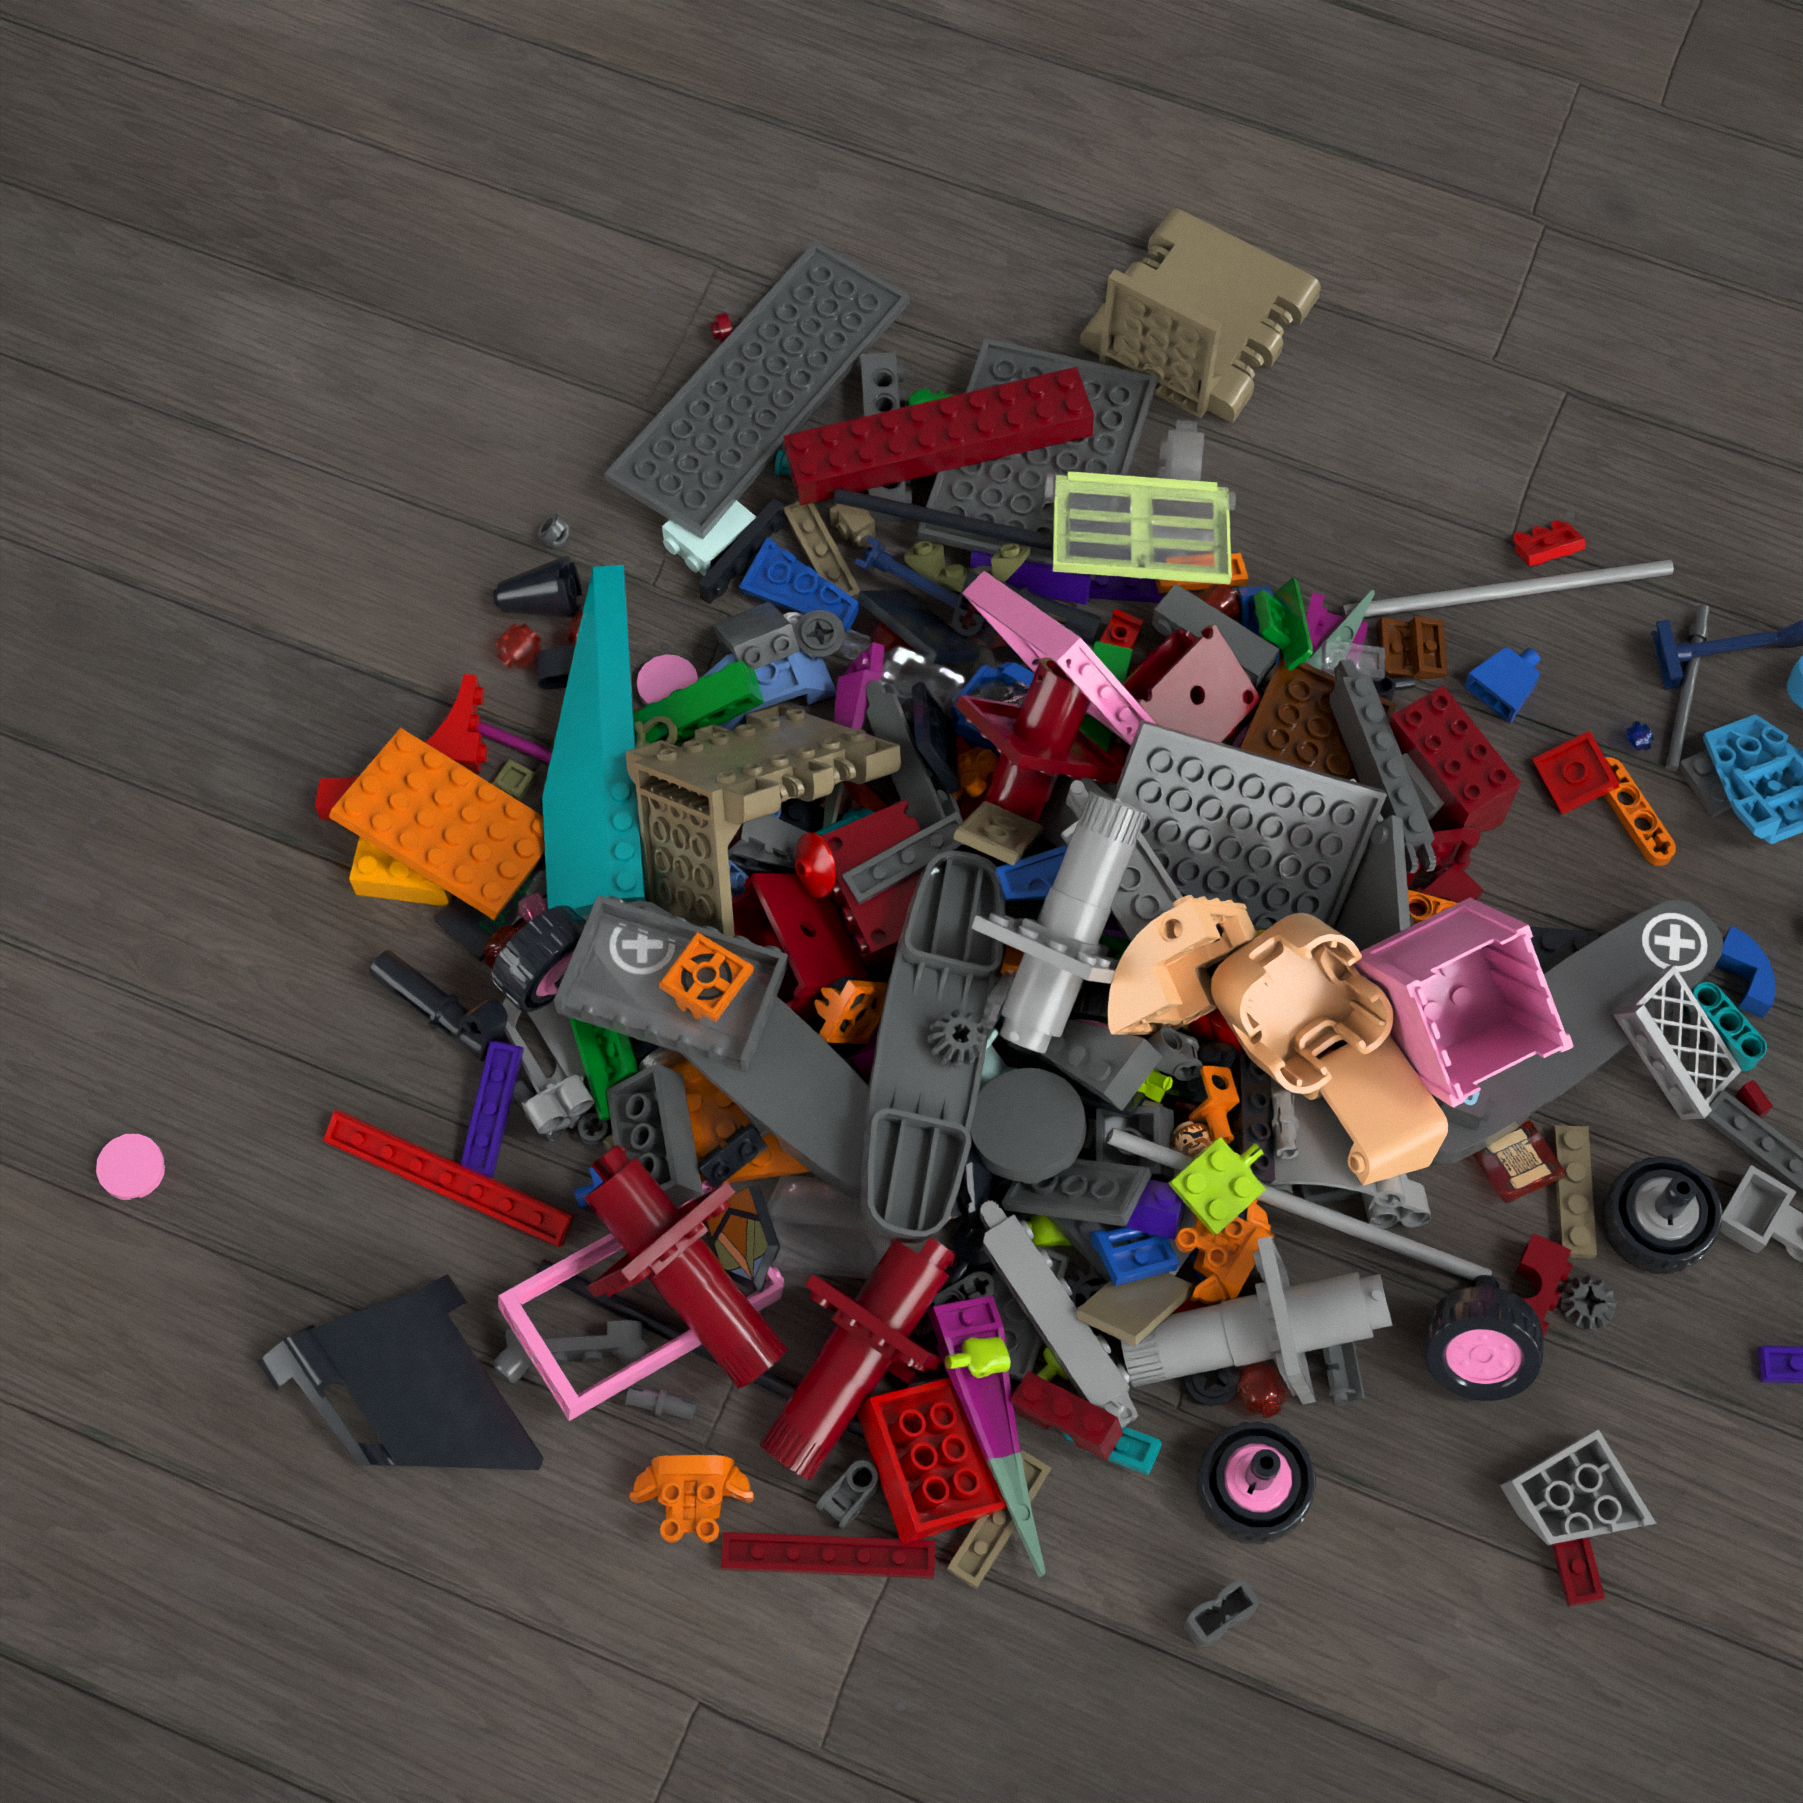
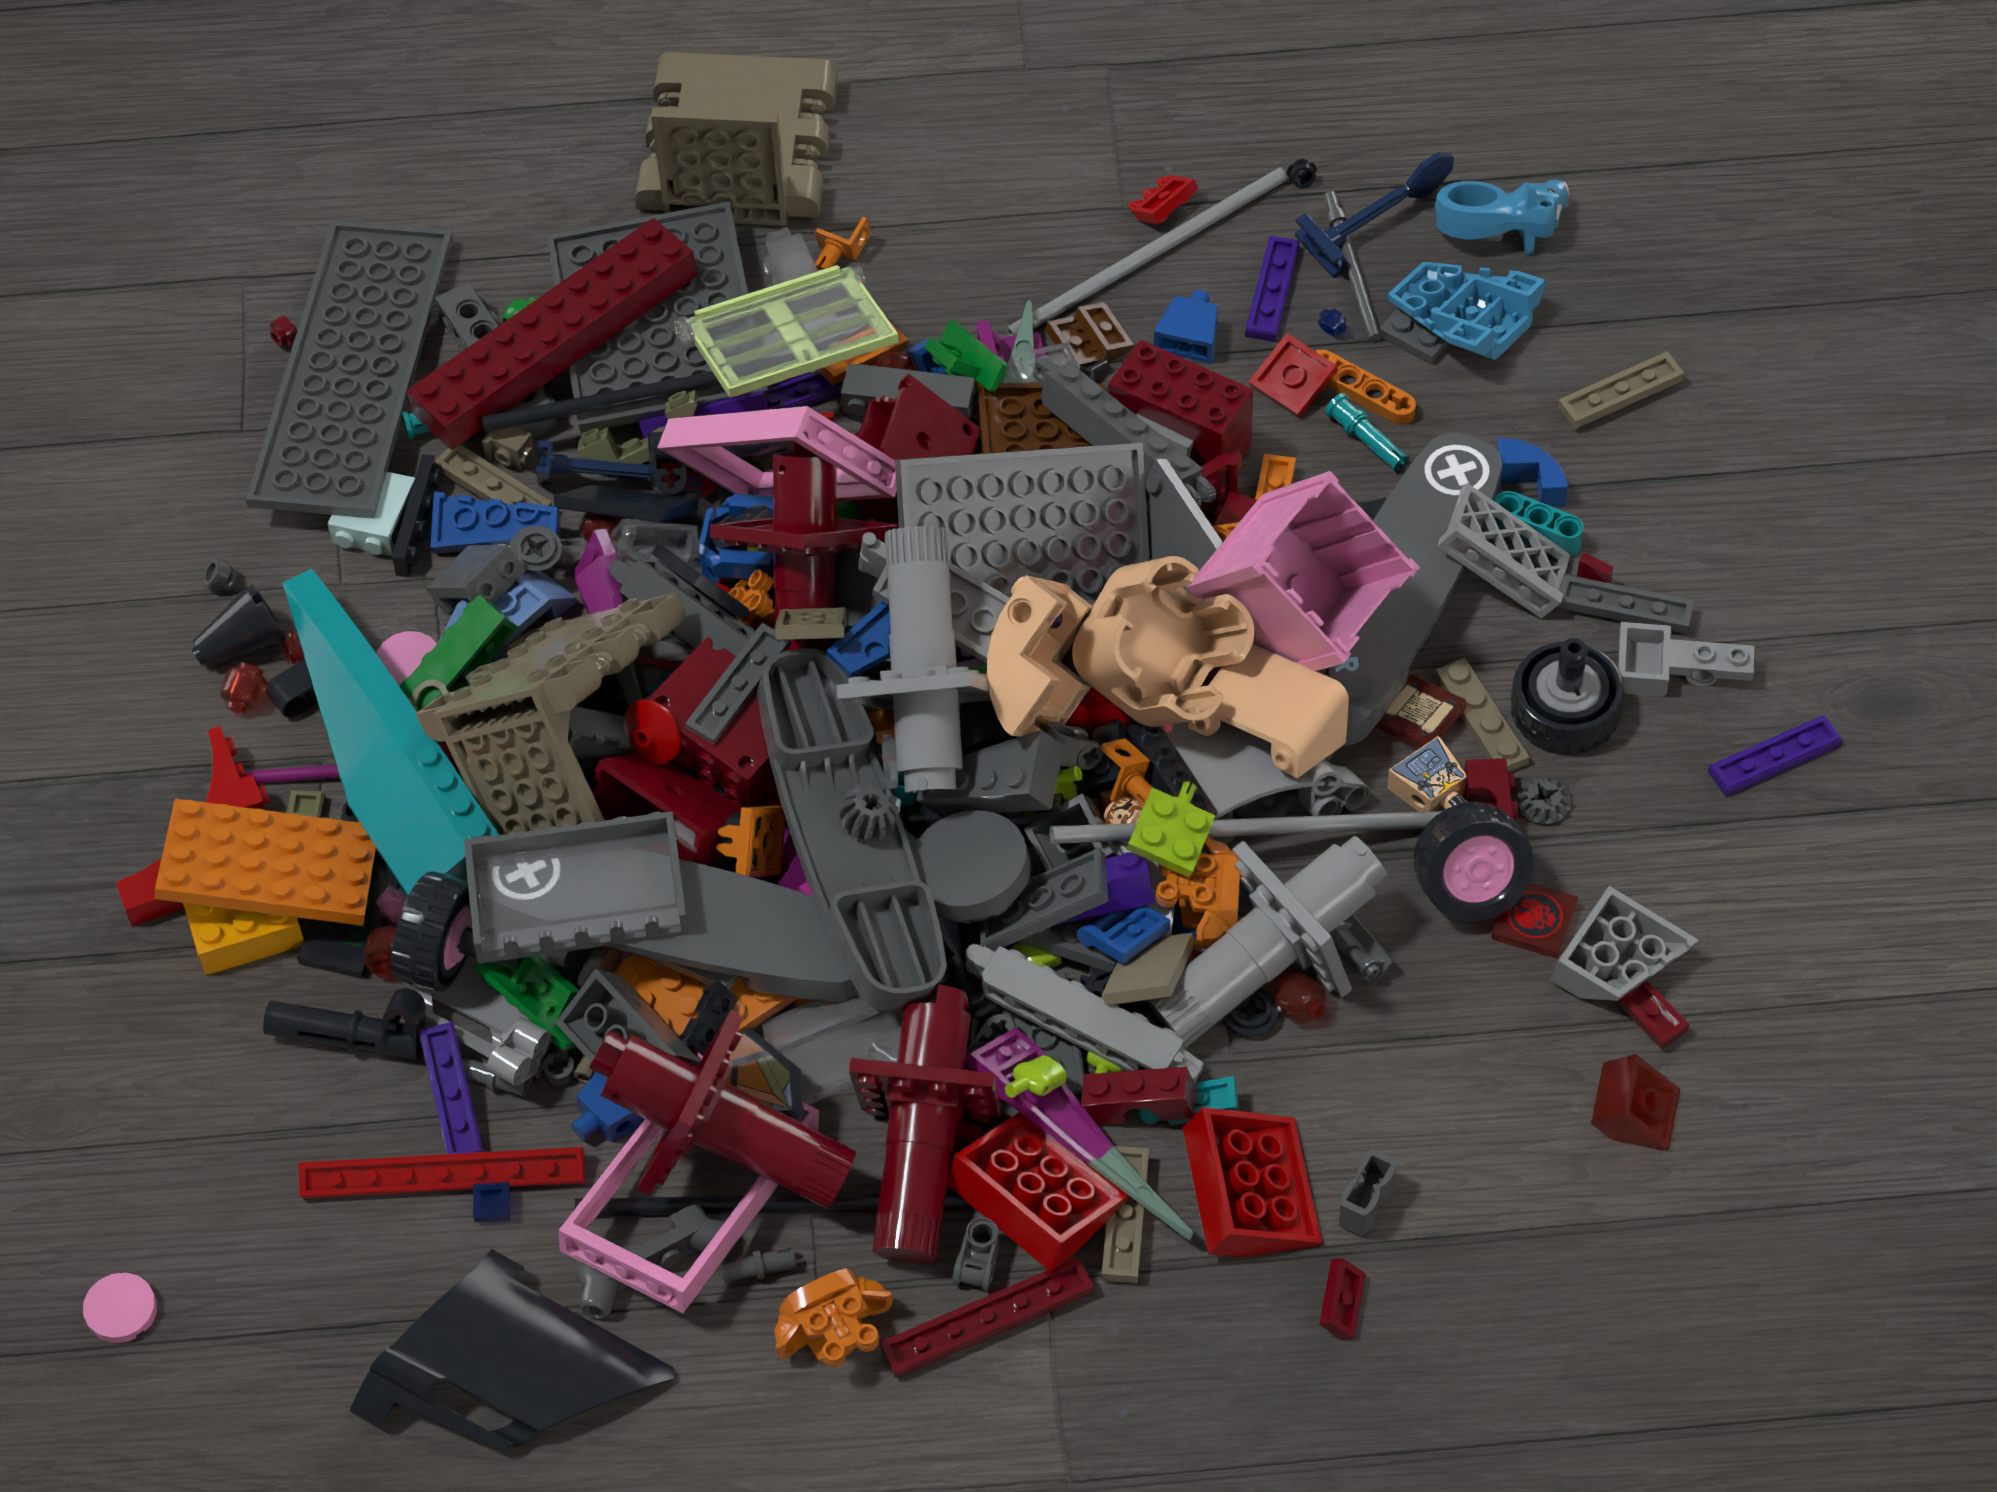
camera: 25 degrees left, 10 degrees down
(473, 1226) = (491, 1202): none -> clear blue plate
(708, 978) = (608, 863): orange piece -> none
(1124, 1548) = (1250, 1183): none -> red slope
(1146, 1704) = (1342, 1299): none -> dark red plate
(1232, 460) = (836, 246): none -> orange bracket
(1255, 1482) = (1337, 1074): black wheel -> none
(1285, 1125) = (1201, 763): light grey pin -> none
(1493, 1234) = (1429, 778): none -> torso
(1504, 871) = (1275, 473): none -> orange plate
(1513, 1652) = (1635, 1103): none -> clear red slope
(1519, 1422) = (1537, 921): none -> tile
(1603, 676) = (1272, 289): none -> dark purple tile
(1611, 846) = (1357, 423): none -> teal pin
(1689, 574) = (1303, 178): none -> black plate

